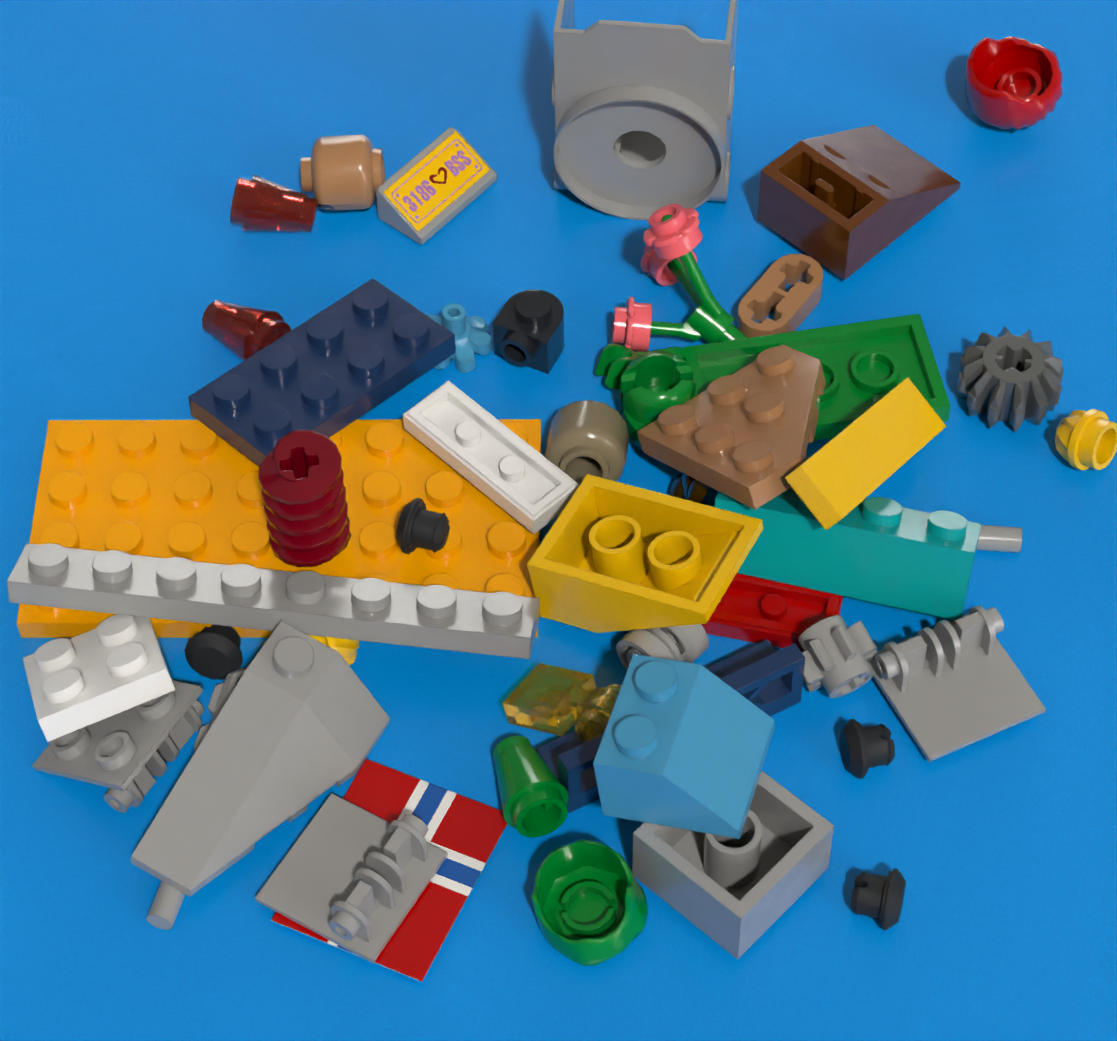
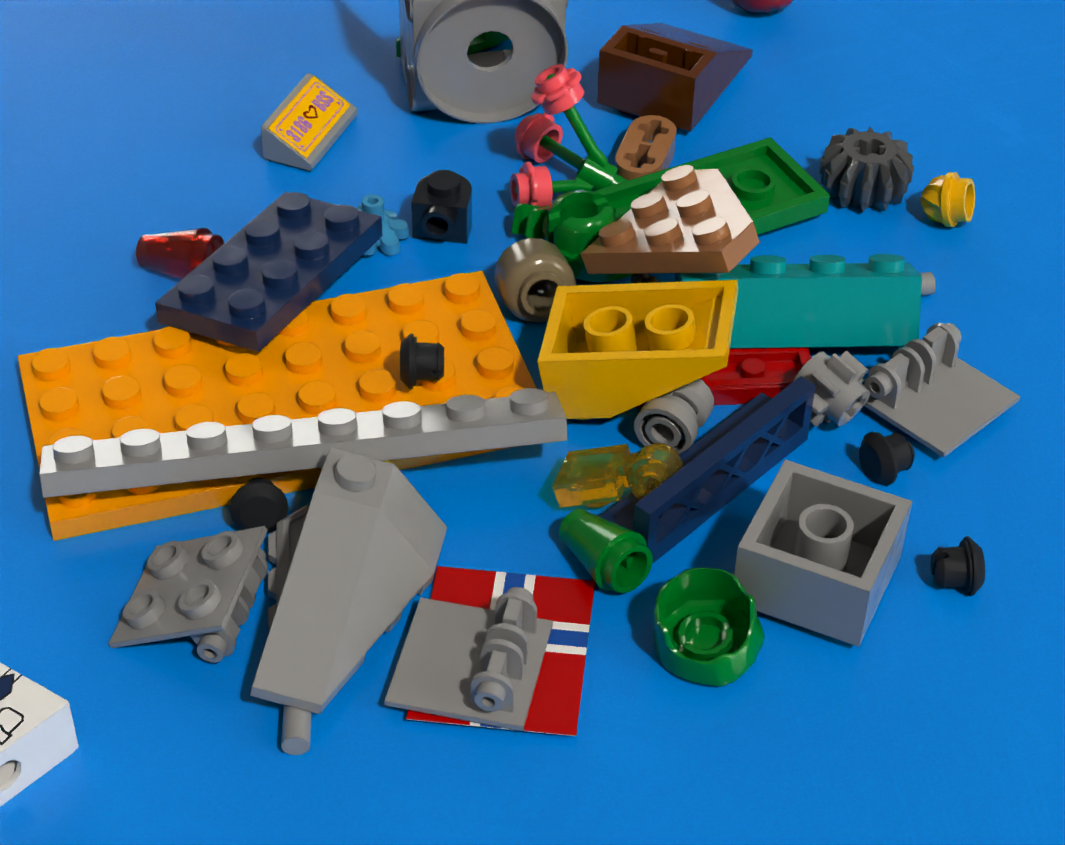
camera: 20 degrees left, 10 degrees down
(96, 674) = (153, 541): white plate -> none
(271, 207) = (166, 160): clear red cone -> none
(305, 499) = (312, 345): dark red piece -> none
(343, 172) = (224, 121): medium nougat head -> none
(490, 456) = (456, 299): white tile -> none
(681, 749) = (757, 464): dark azure slope -> none
(865, 453) = (793, 224): yellow tile -> none

